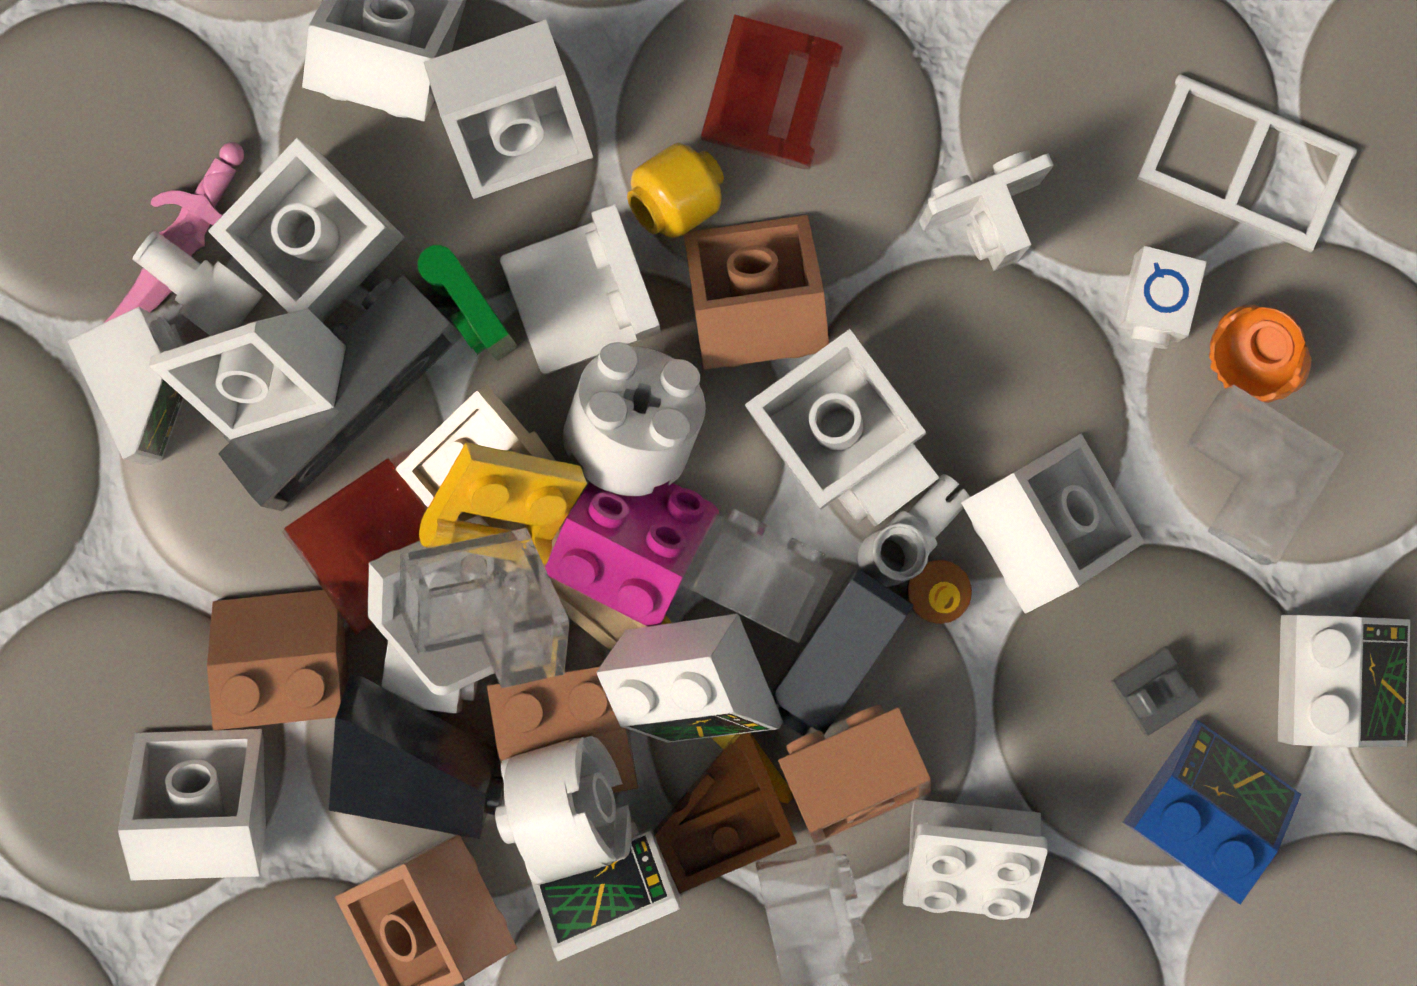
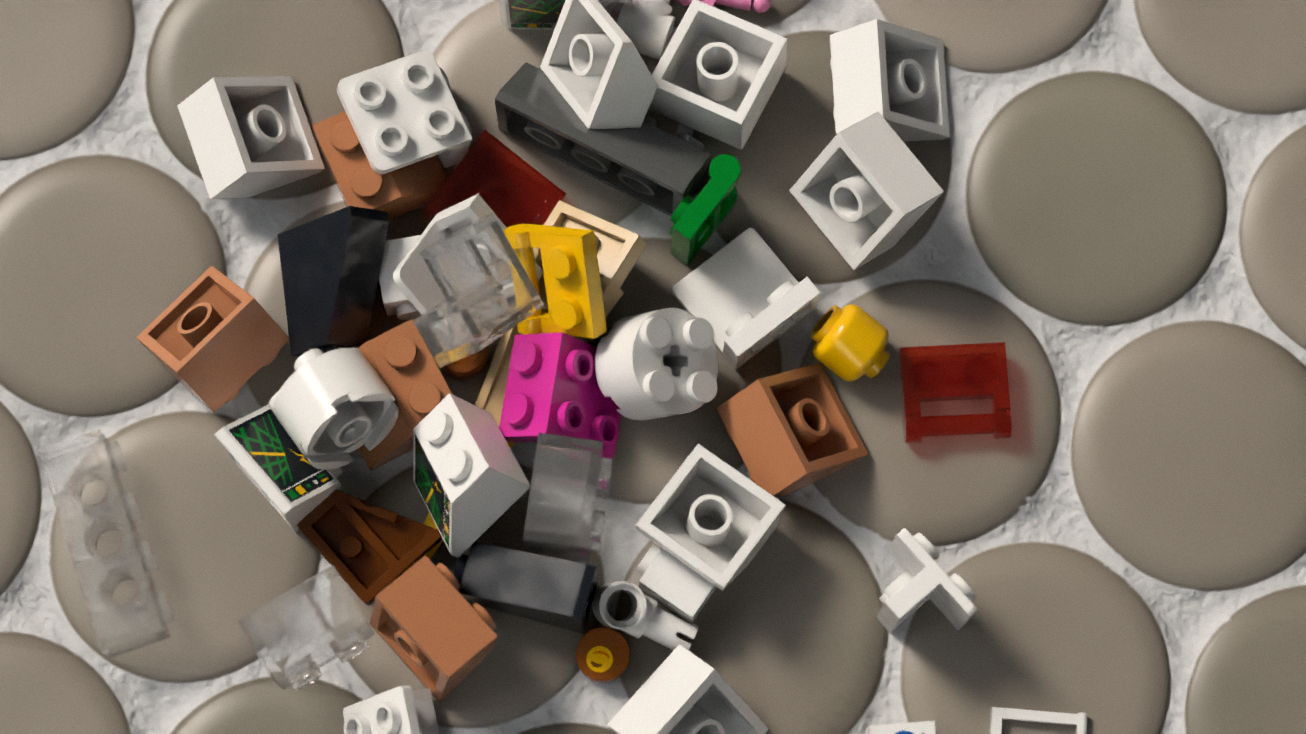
camera: 65 degrees right, 10 degrees down
(234, 616) = (405, 113): none -> white bracket

